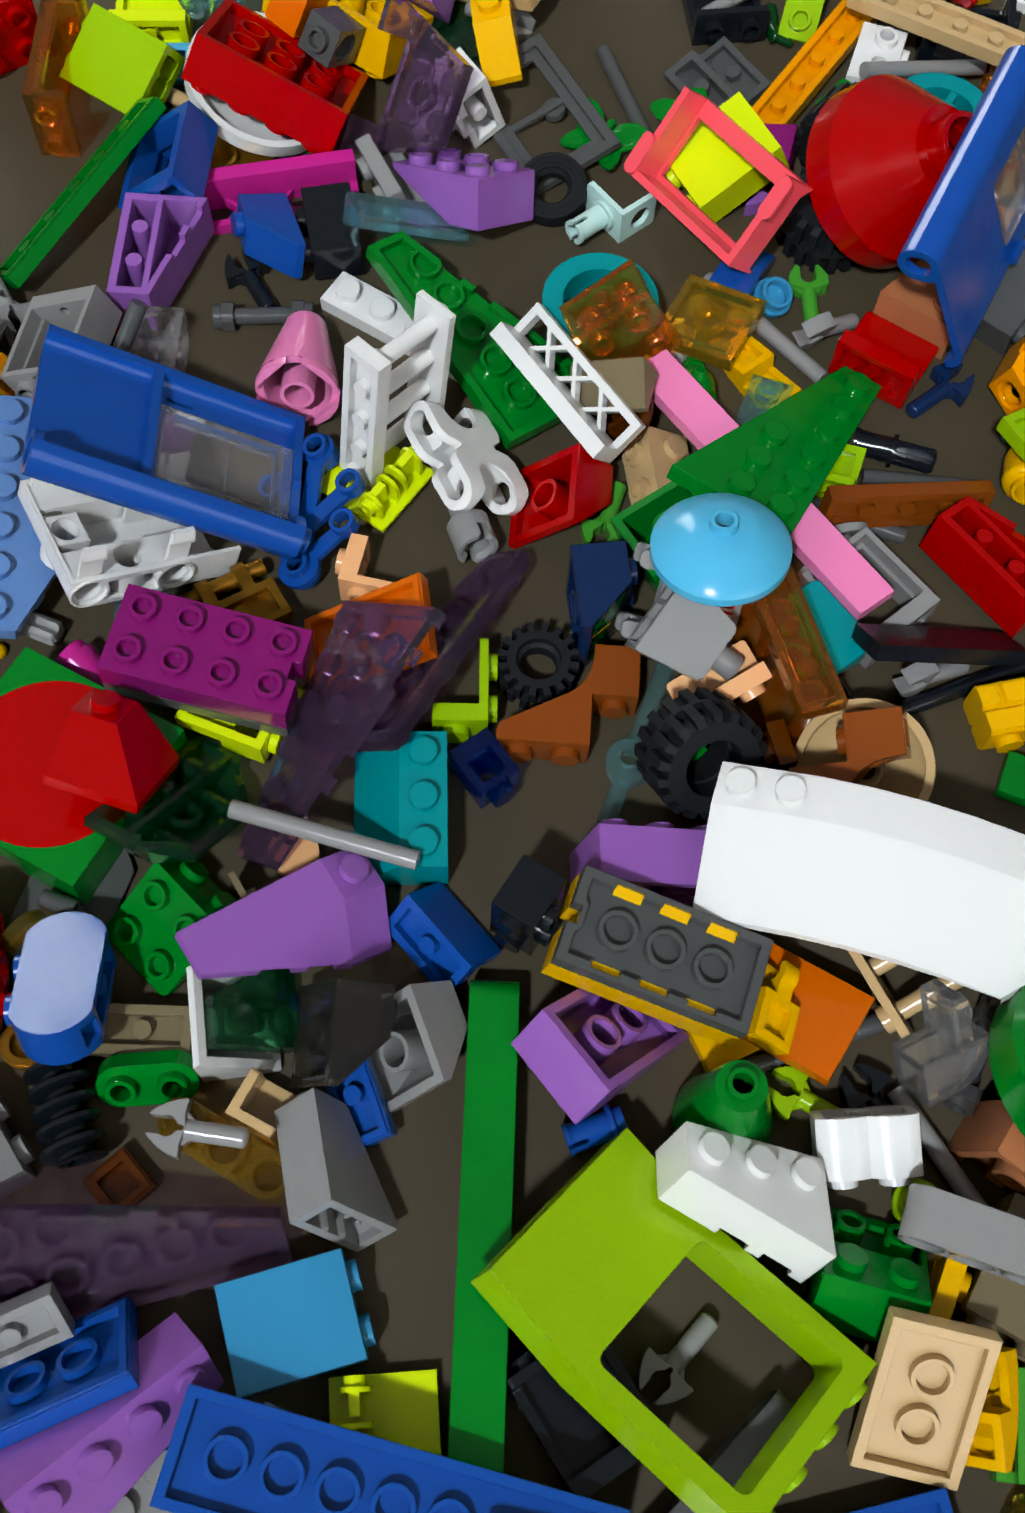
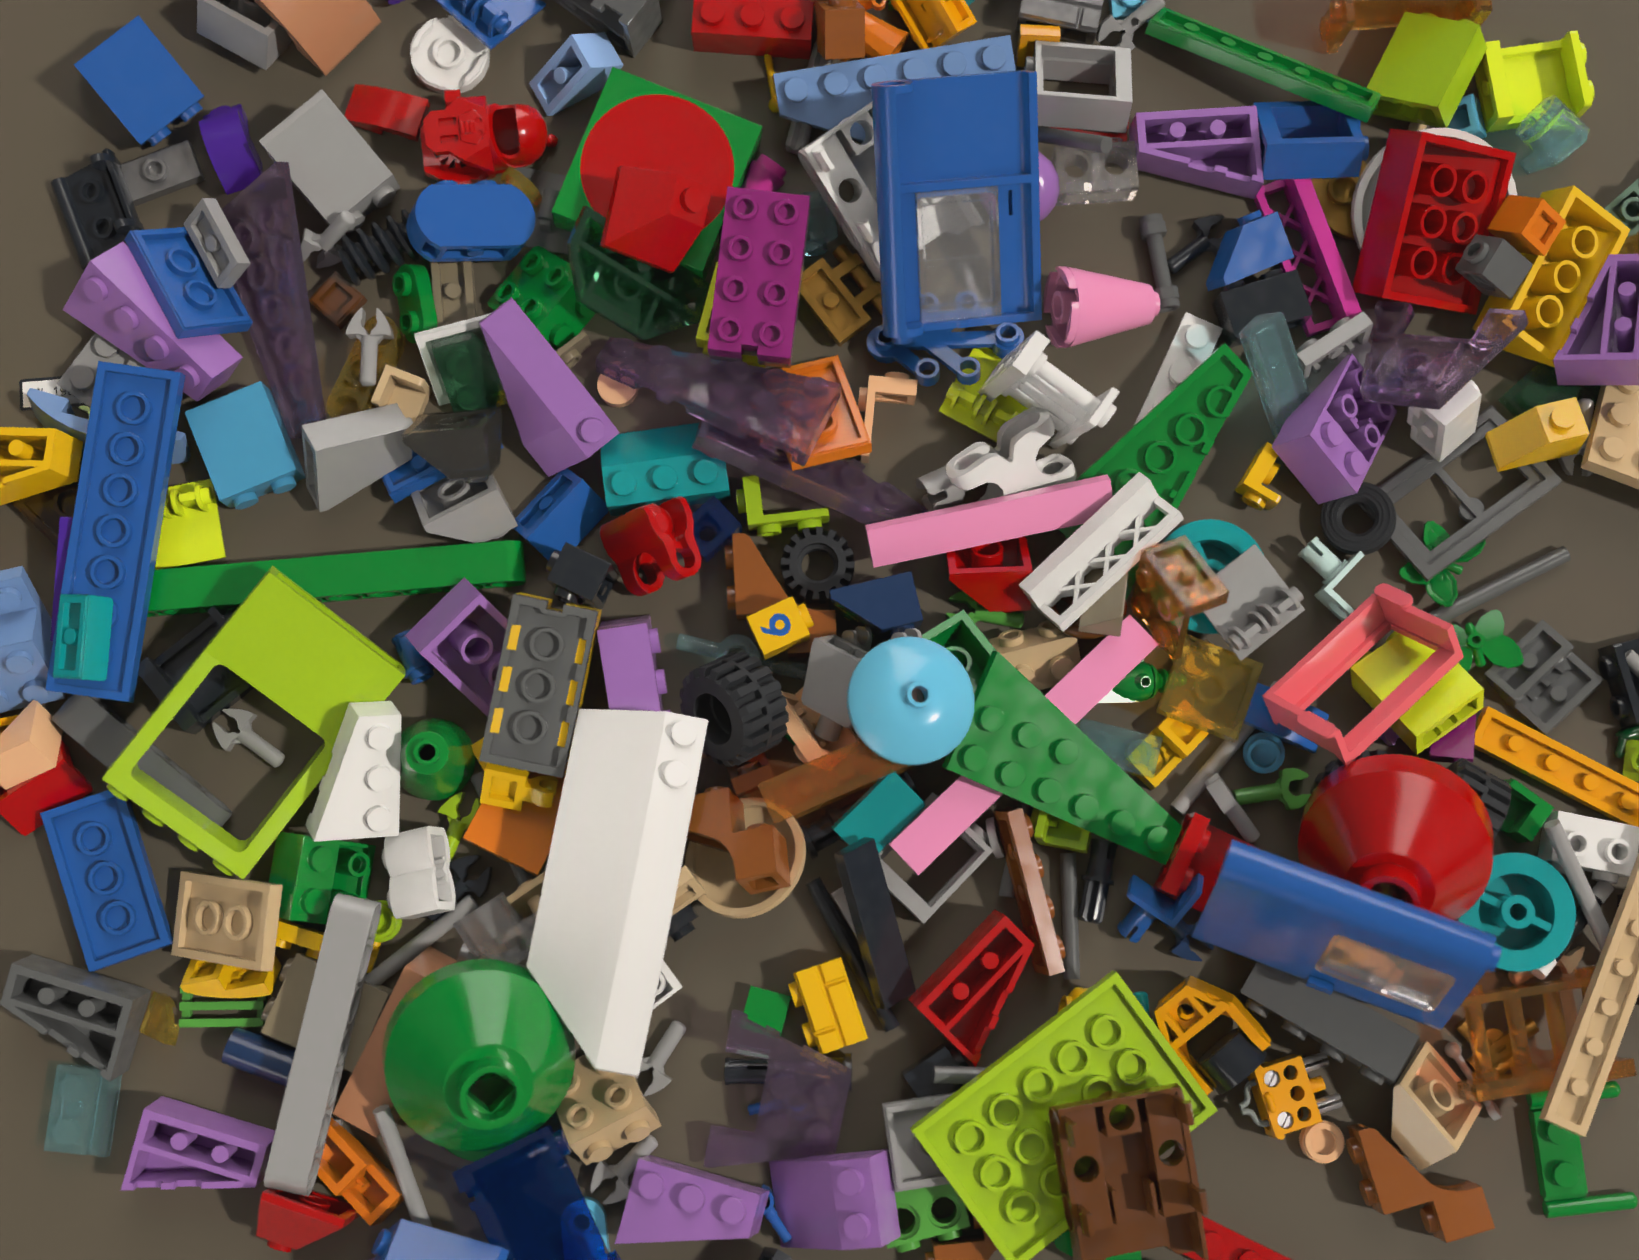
camera: 85 degrees right, 15 degrees up
(45, 1185) = (327, 240): none -> light grey bar
(324, 834) = (617, 401): light grey bar -> none
(481, 818) = (650, 540): none -> red piece
(499, 263) = (1260, 470): none -> yellow bracket
(518, 485) = (986, 521): none -> bright pink tile
(614, 692) = (780, 627): none -> yellow brick
(647, 250) = (1256, 603): none -> light grey hinge
(923, 399) = (1154, 904): none -> blue bracket

